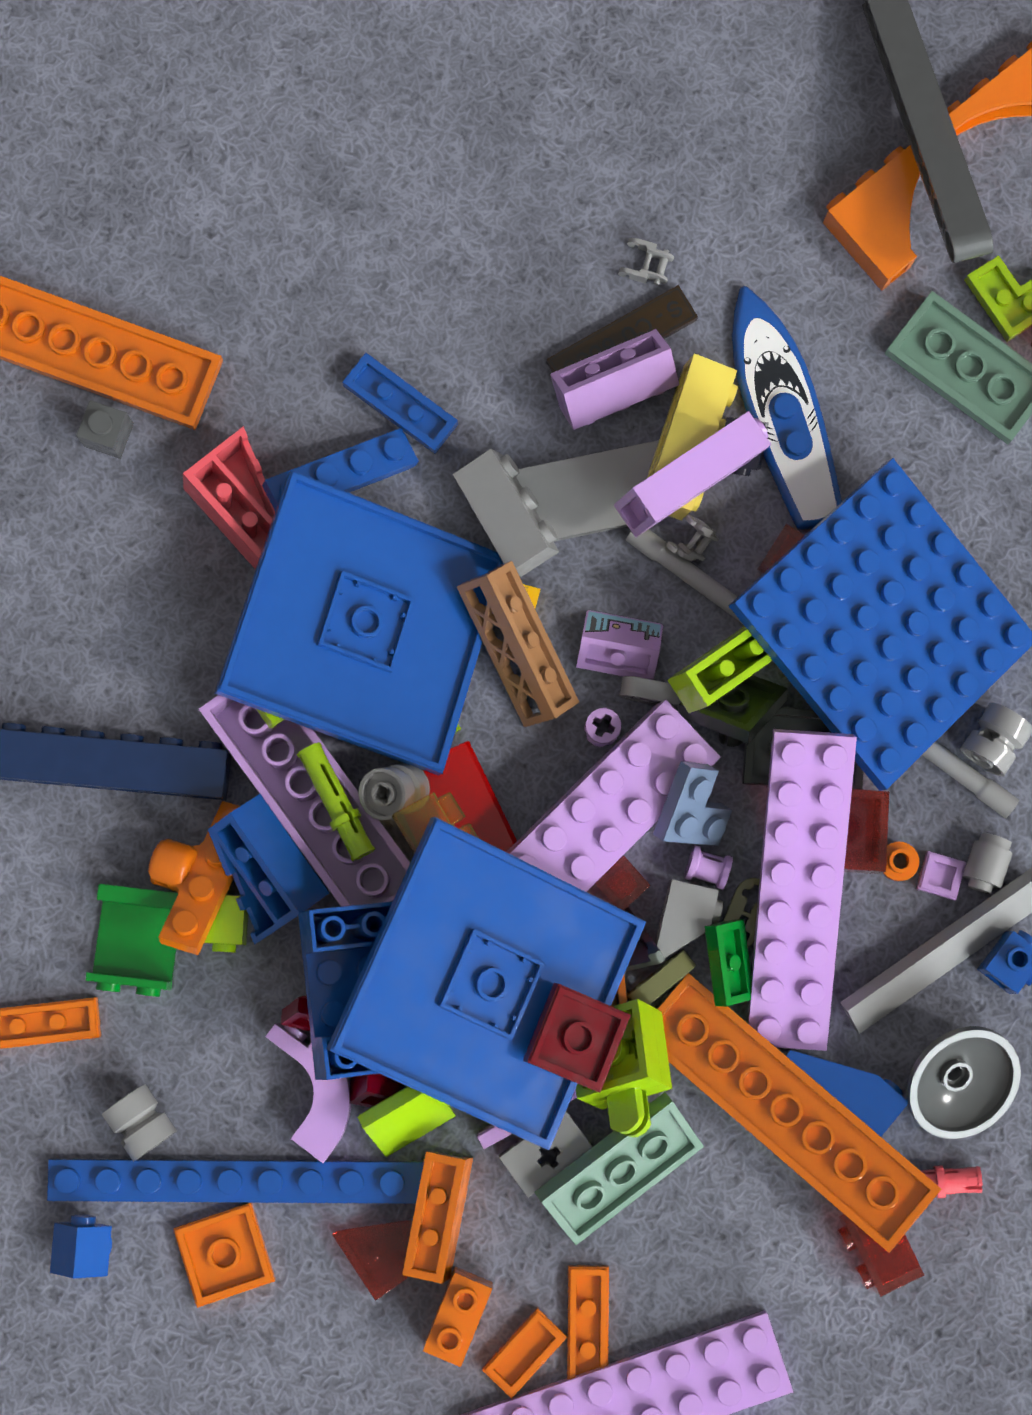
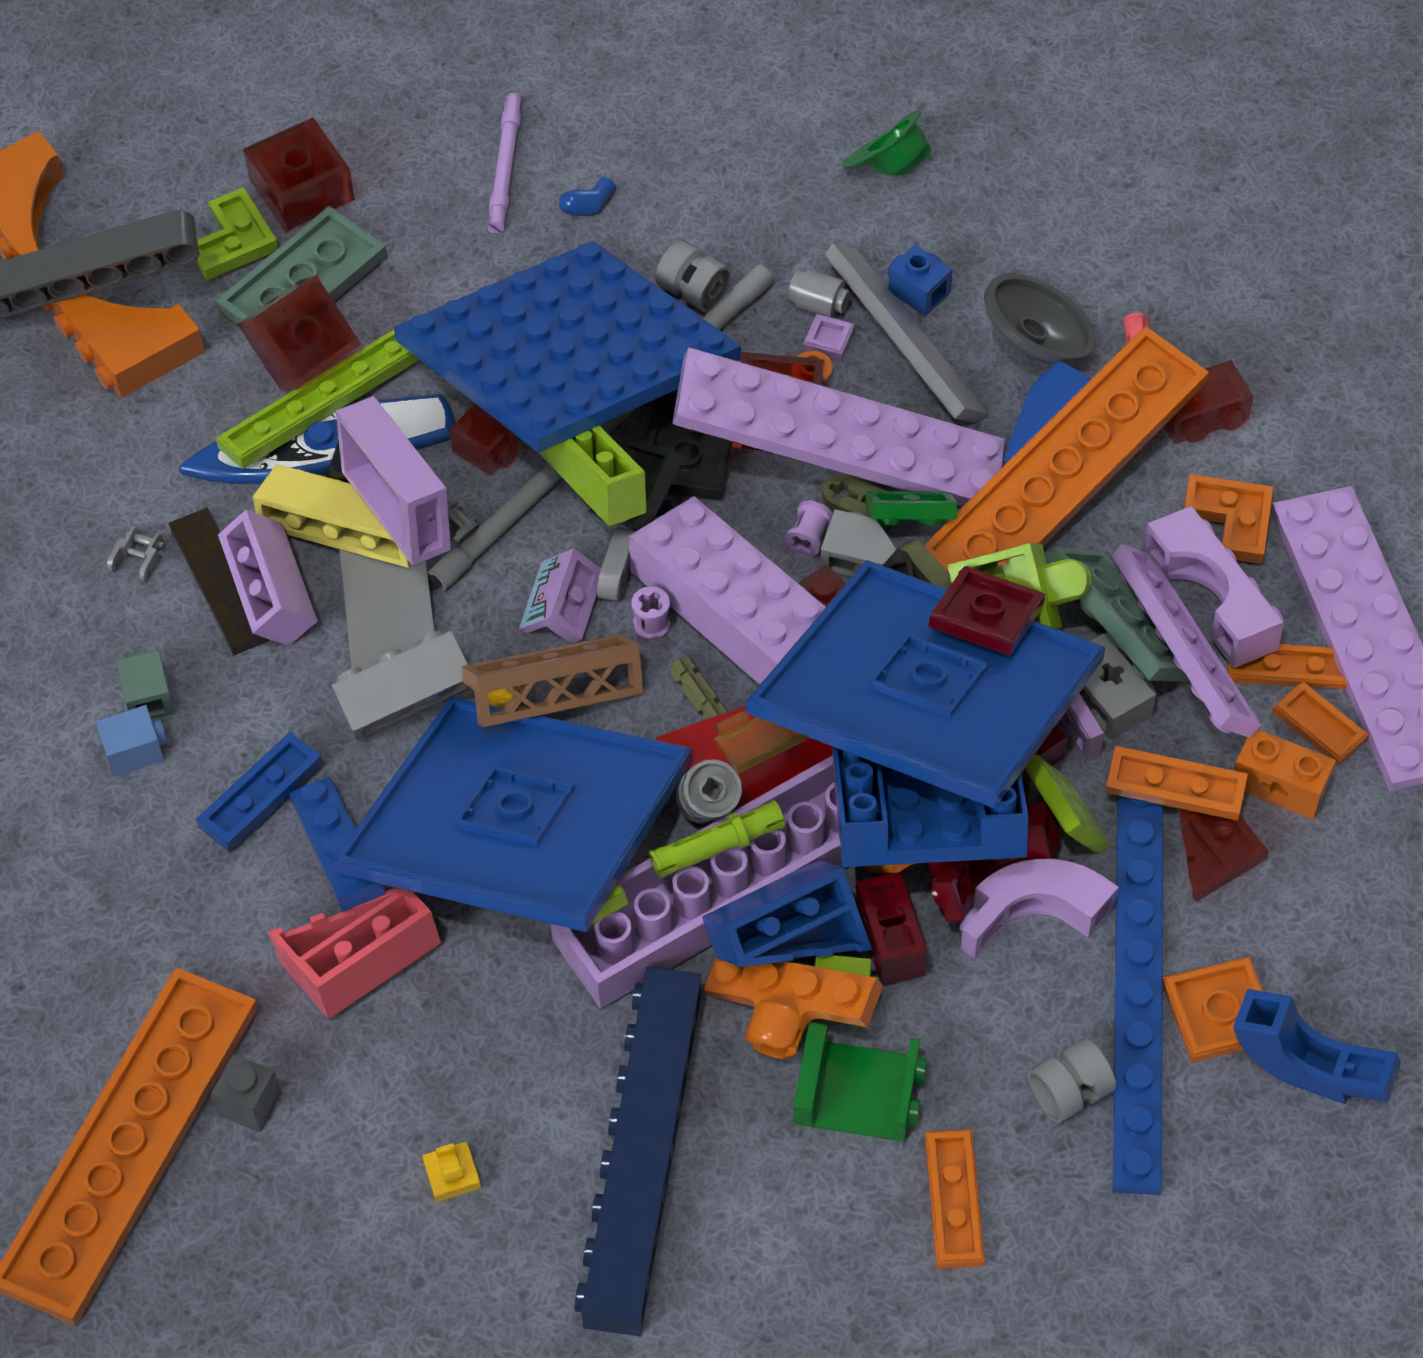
camera: 80 degrees left, 25 degrees down
(49, 605) = (451, 1171): none -> yellow tile
(81, 1248) = (1214, 1146): blue brick -> none
(167, 1340) = (1304, 1058): none -> blue arch
(269, 962) = (891, 928): none -> dark red brick
(443, 286) = (131, 740): none -> medium blue brick
(500, 289) = (145, 683): none -> sand green brick
(526, 777) = (696, 688): none -> olive axle
(586, 1226) = (1186, 641): none -> lavender plate
(687, 813) = (755, 524): sand blue plate -> none
(704, 1229) = (1189, 550): none -> lavender arch
(758, 1283) = (1239, 506): none -> orange plate
(826, 399) = (315, 400): none -> lime tile
(886, 371) = (299, 333): none -> clear red brick

